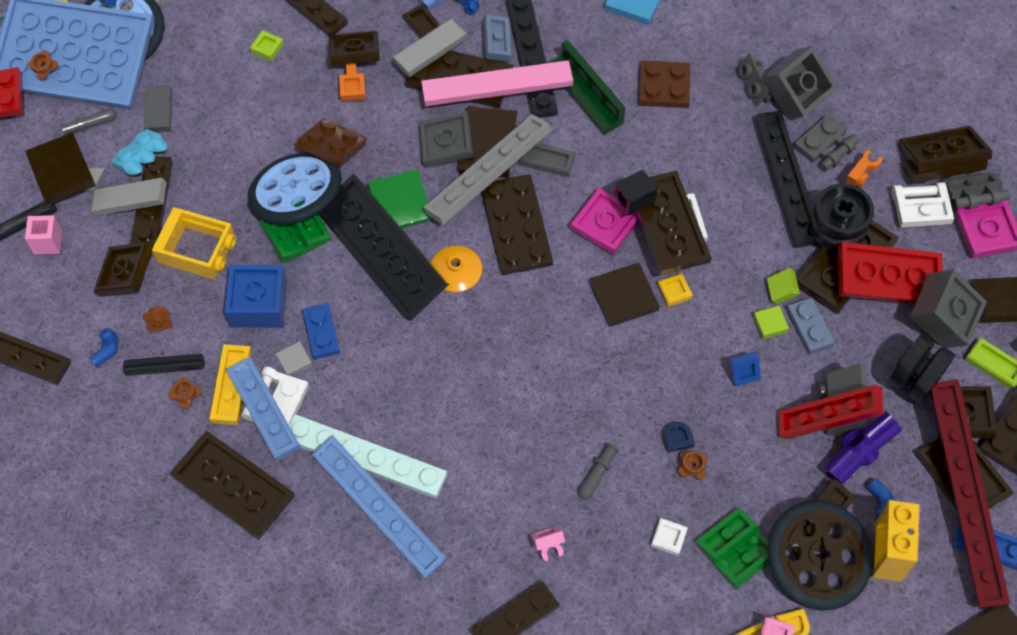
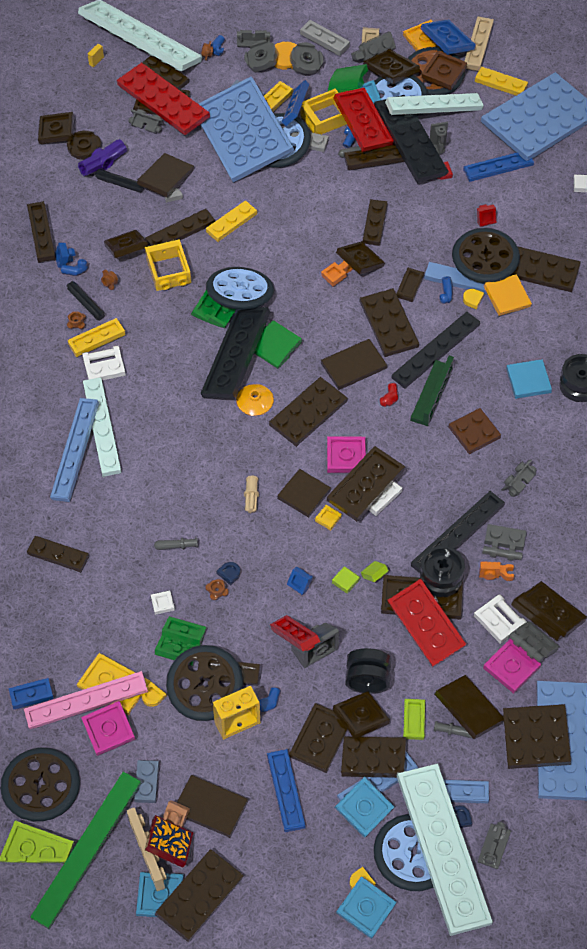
camera: 55 degrees right, 5 degrees down
(40, 58) = (220, 121): dark orange plate -> none
(43, 234) = (117, 195): bright pink brick -> none
(76, 348) = (63, 254): none -> blue tile
(92, 120) = (207, 168): dark grey piece -> none
(129, 196) = (172, 216): light grey tile -> none
(139, 151) = (205, 203): medium azure plate -> none
(158, 108) = (243, 192): dark grey tile -> none
(186, 142) = (231, 221): none -> yellow plate
(232, 485) = (38, 375): dark brown plate -> none
(256, 296) = (156, 313): blue container -> none
(263, 409) = (90, 359): medium blue tile -> none
(266, 45) = (328, 216): lime tile -> none
(294, 359) = (134, 357): light grey tile -> none
(321, 331) = (162, 359): blue plate -> none
(331, 142) = (285, 286): reddish brown plate -> none
(430, 48) = (390, 293): light grey tile -> none
(446, 139) = (336, 341): dark grey tile -> none
(487, 169) = (329, 372): light grey plate -> none
(497, 38) = (430, 323): sand blue plate -> none
(497, 83) = (394, 342): bright pink tile -> none
(546, 539) = (113, 540): bright pink tile -> none
(549, 159) = (367, 401): dark grey tile -> none
(562, 132) = (391, 397): none -> red arm
(587, 349) = (251, 494): none -> tan axle
(636, 192) = (366, 450): black brick -> none
(800, 82) = (529, 498): dark grey brick -> none
(810, 326) = (360, 602): sand blue plate -> none
(862, 447) = (291, 668): dark purple piece -> none
(948, 309) = (423, 665): dark grey container -> none
(969, 495) = (300, 738): dark red plate -> none

